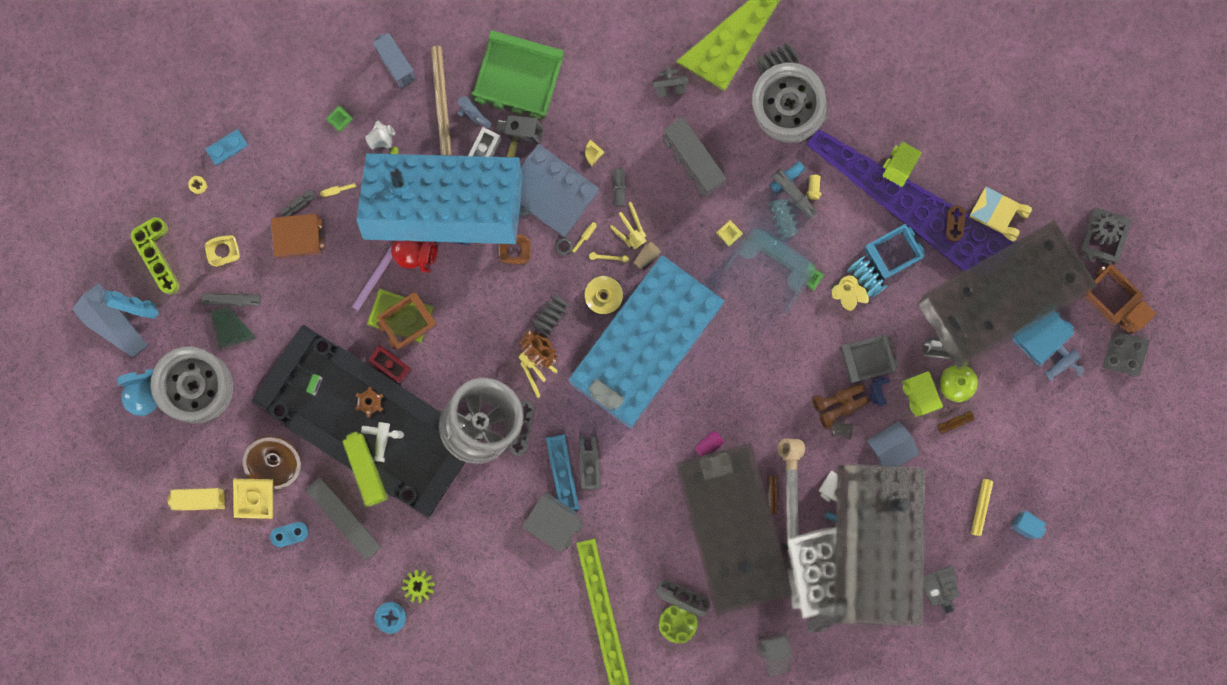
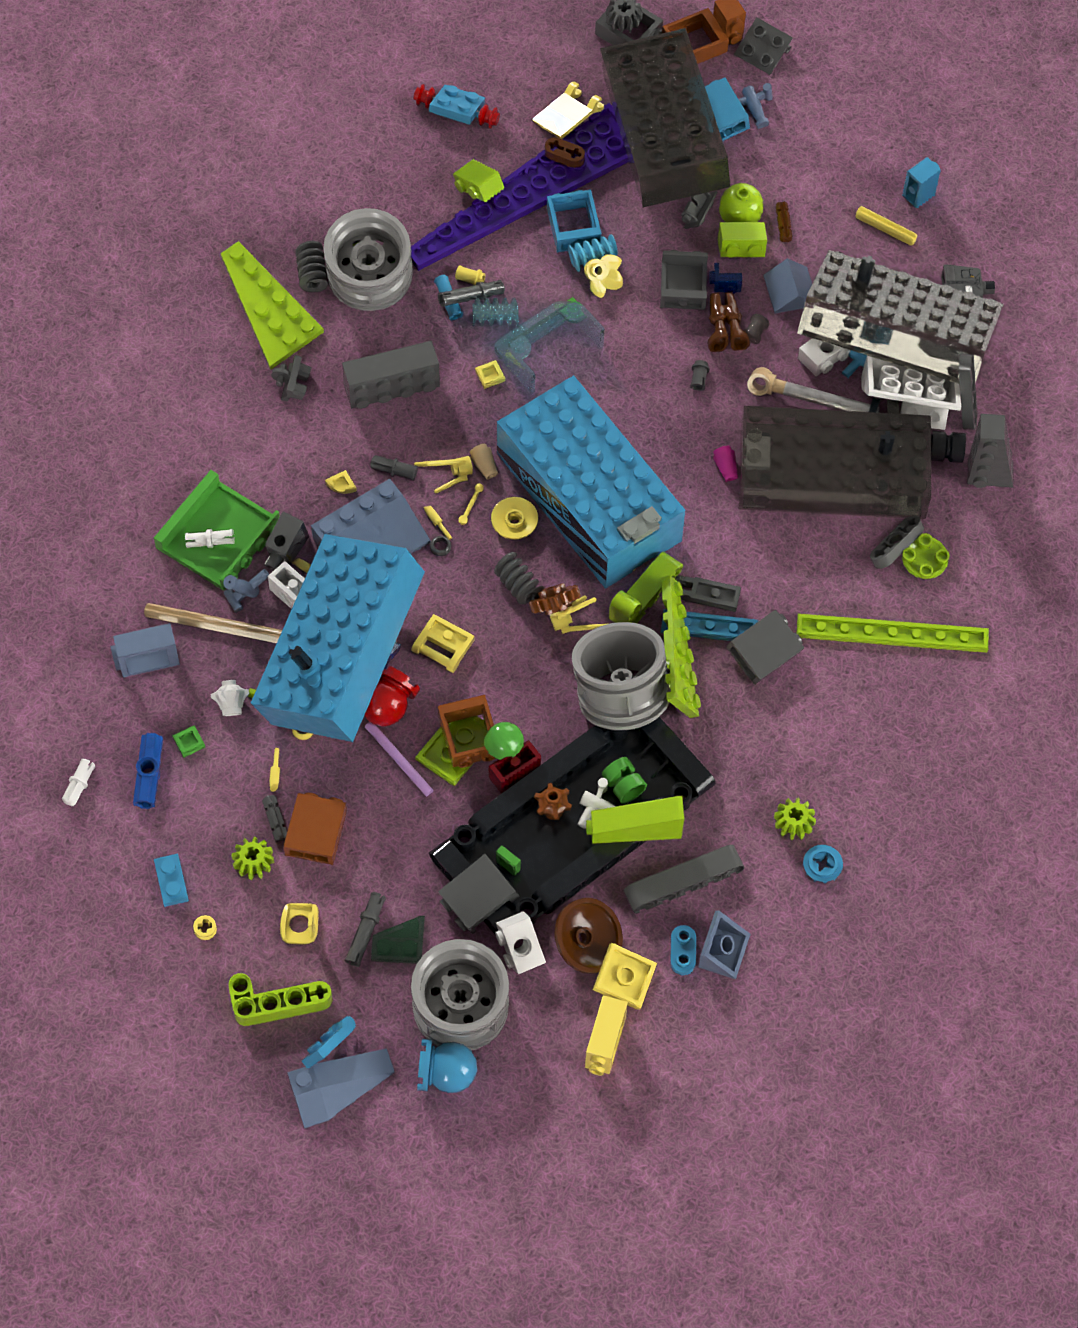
camera: 75 degrees left, 20 degrees down
(249, 414) = (530, 953): none -> white brick
(261, 192) = (246, 865): none -> lime gear
(278, 372) = (477, 893): none -> dark grey panel
(279, 52) = (78, 782): none -> white axle
(292, 101) = (147, 784): none -> blue piece
(298, 564) = (724, 946): none -> sand blue slope
(400, 350) = (504, 740): none -> bright green hair
(401, 454) = (625, 782): none -> bright green wheel
(485, 279) = (446, 636): none -> light yellow plate
(507, 71) = (209, 538): none -> white pin
(522, 456) = (678, 655): none -> lime wing
(525, 256) = (437, 591): dark orange piece -> none
(573, 415) = (645, 591): none -> lime beam
(782, 614) = (948, 446): none -> black wheel
(784, 398) = (700, 370): none -> dark grey pin
(974, 121) = (457, 105): none -> dark azure plate

